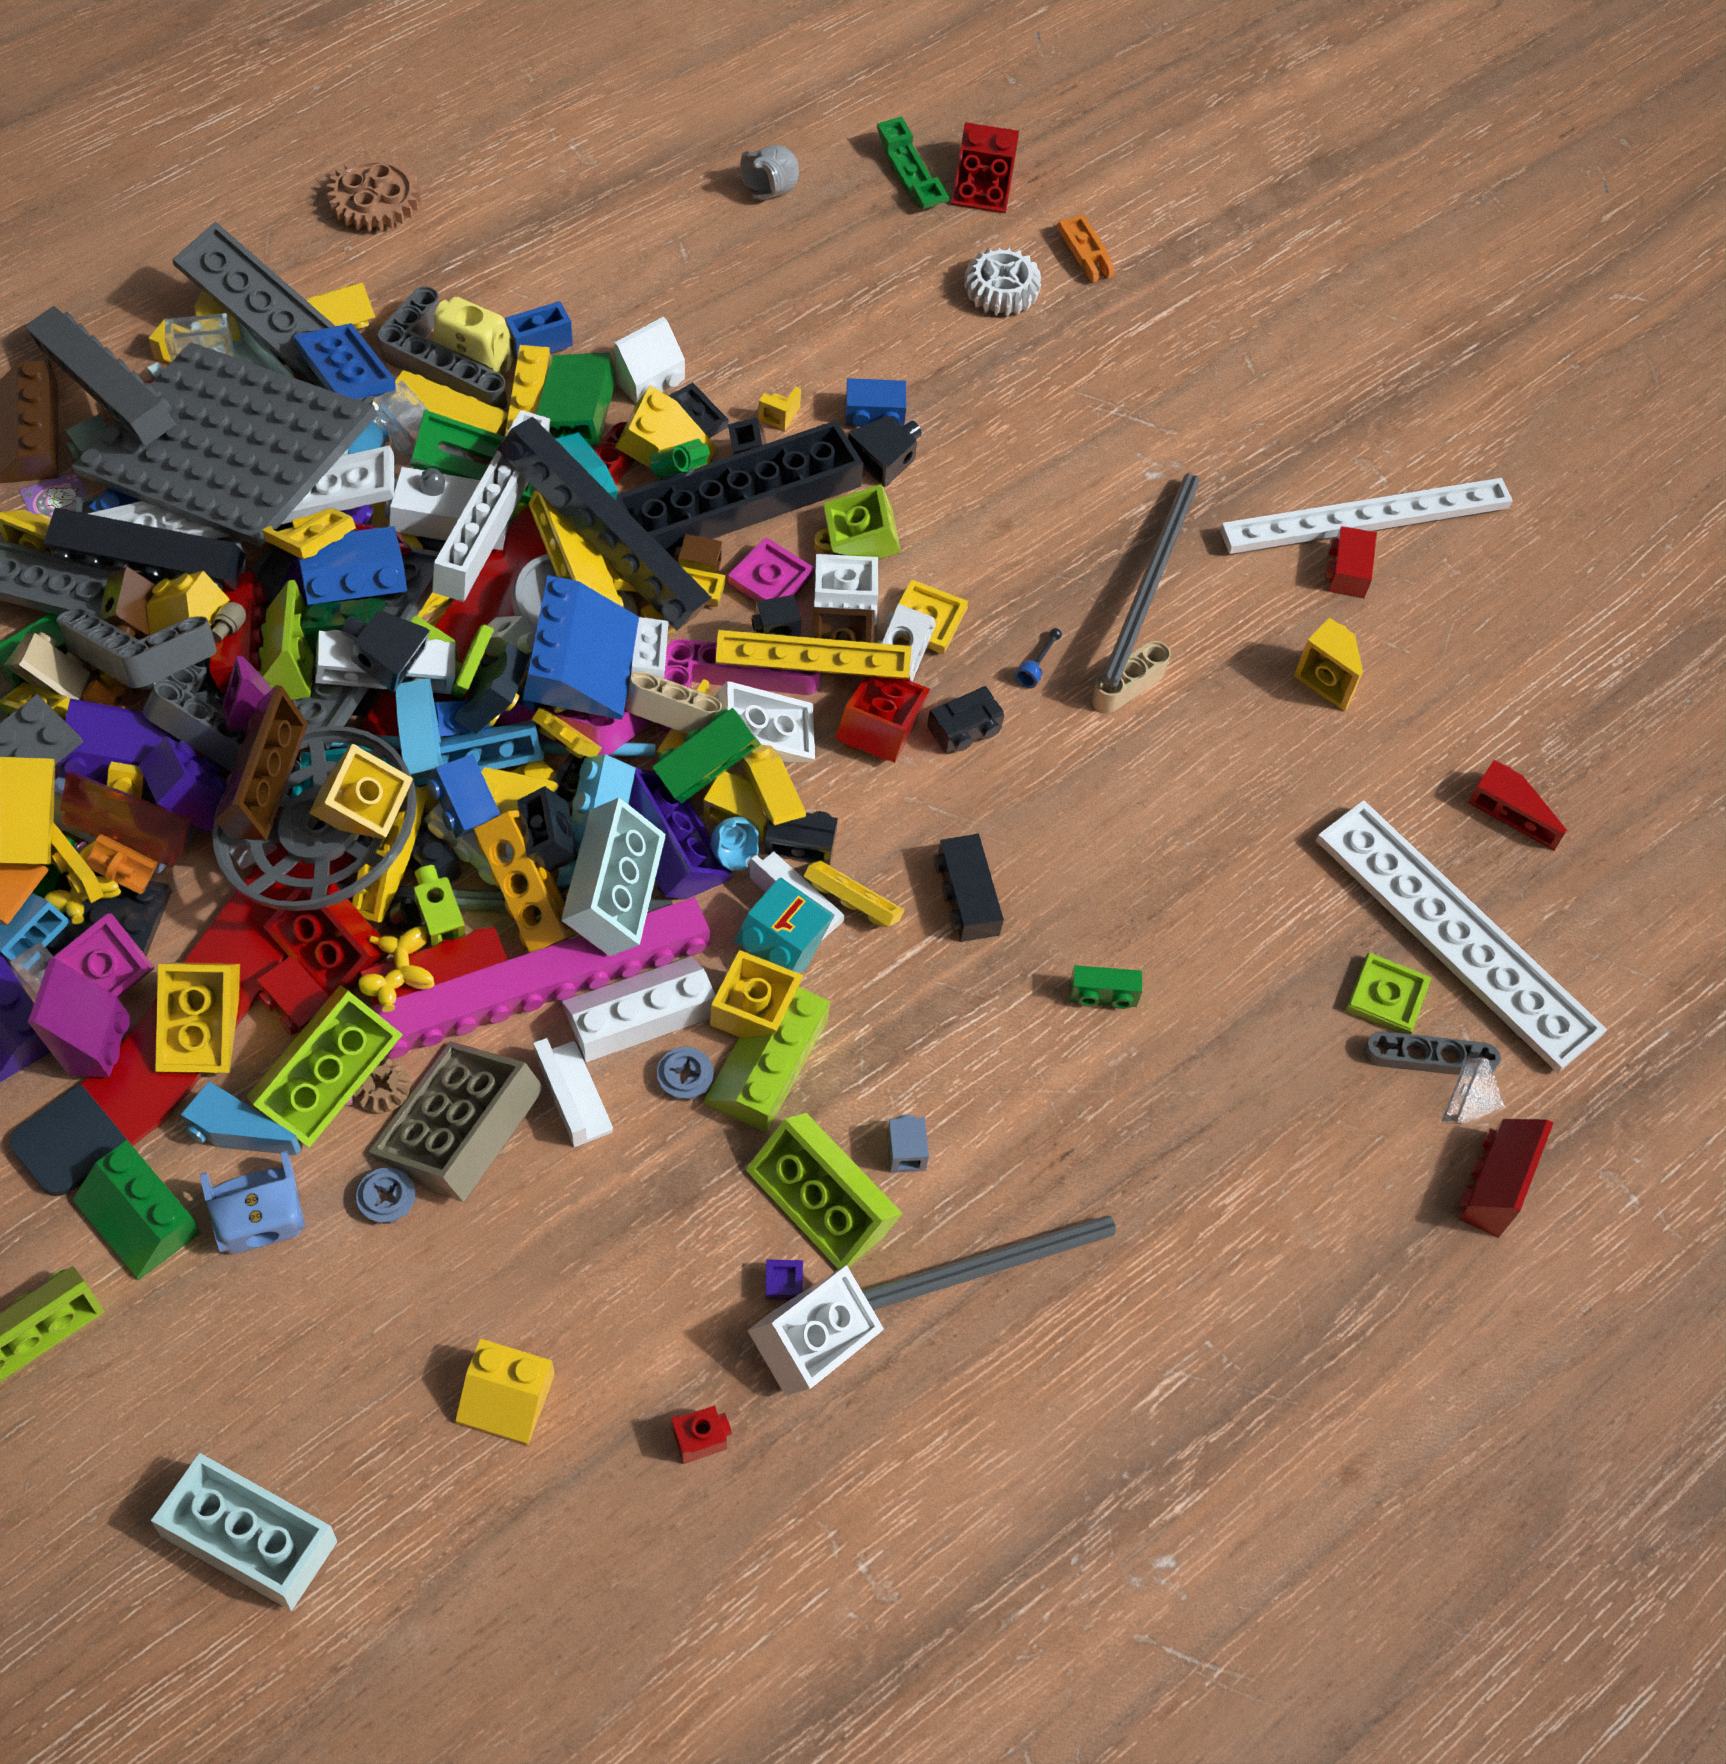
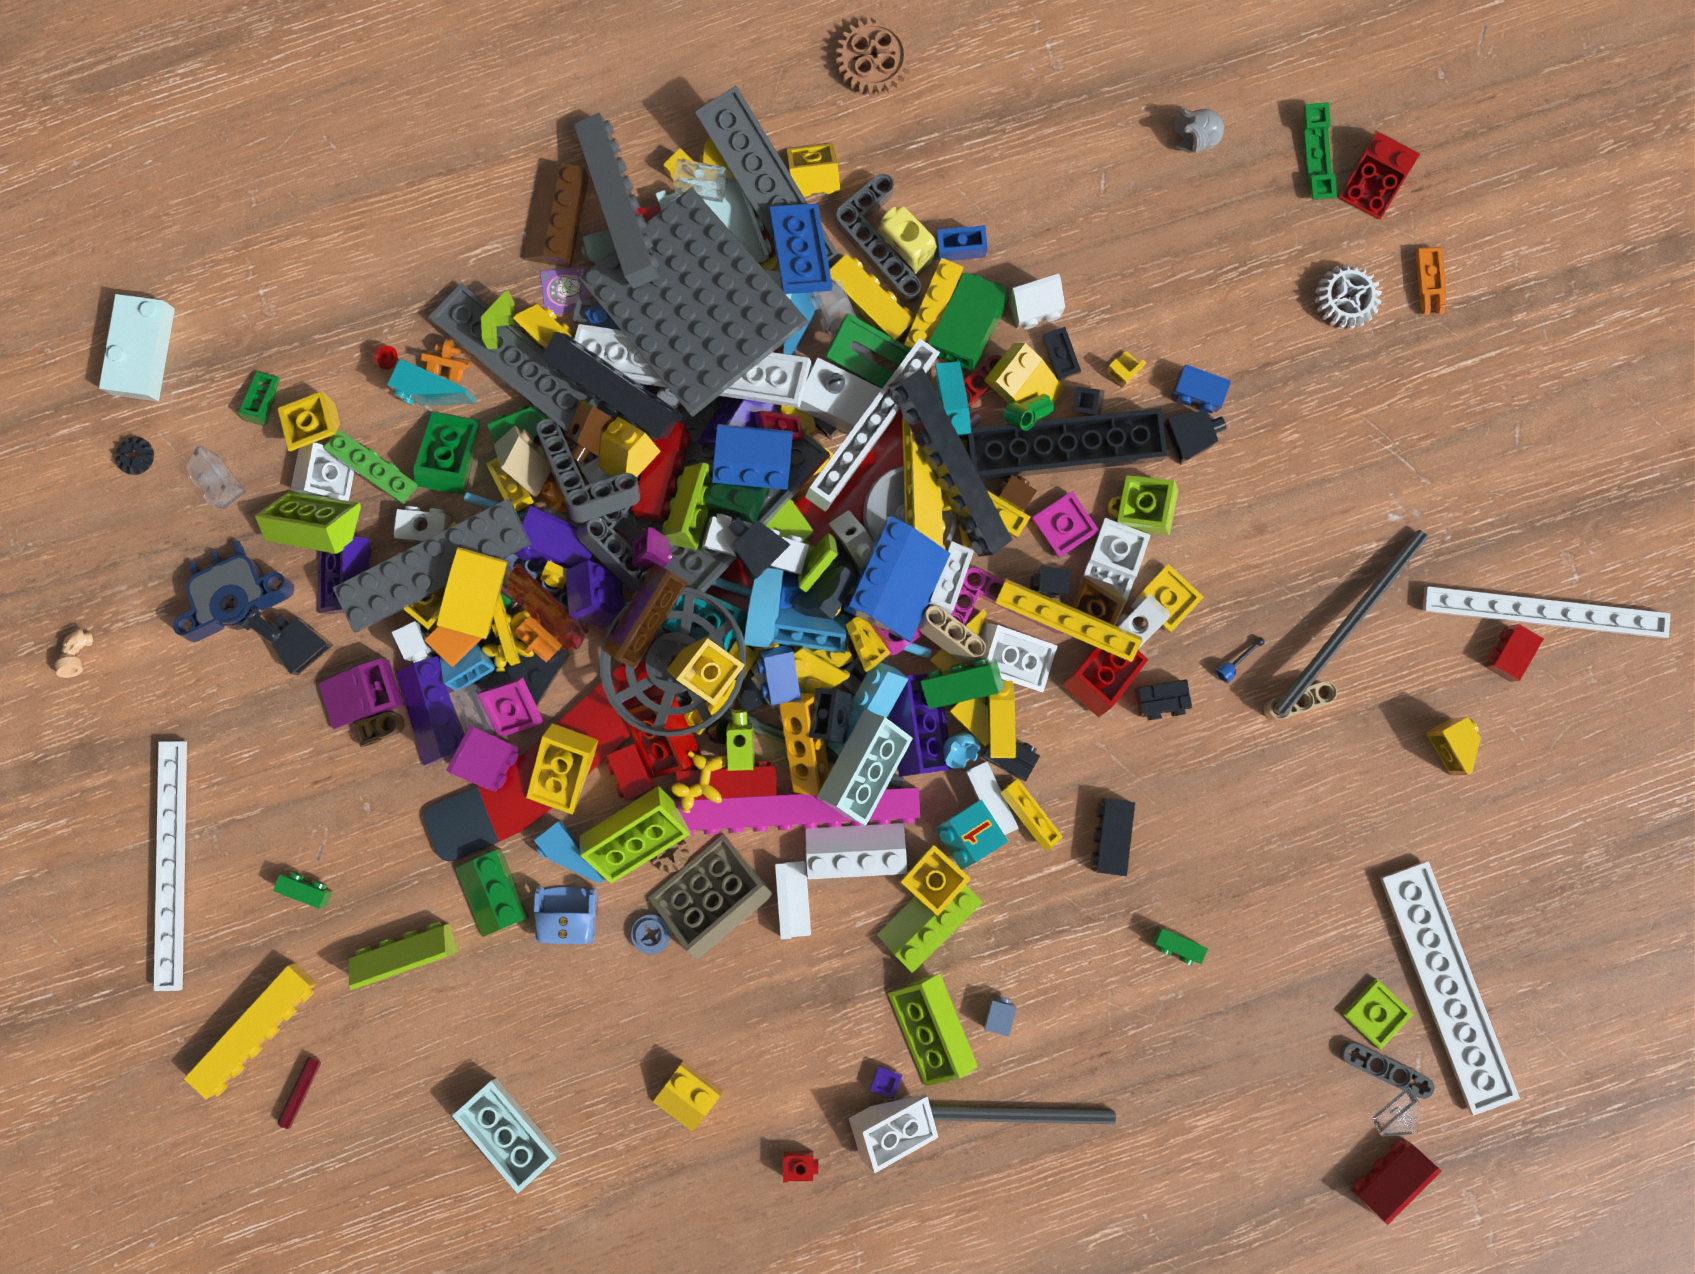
camera: 25 degrees right, 25 degrees up
(228, 620) = (654, 472): dark tan cylinder -> none
(311, 532) = (728, 429): yellow wing -> none
(676, 1061) = (873, 923): sand blue gear -> none
(1516, 803) = (1541, 897): red slope -> none

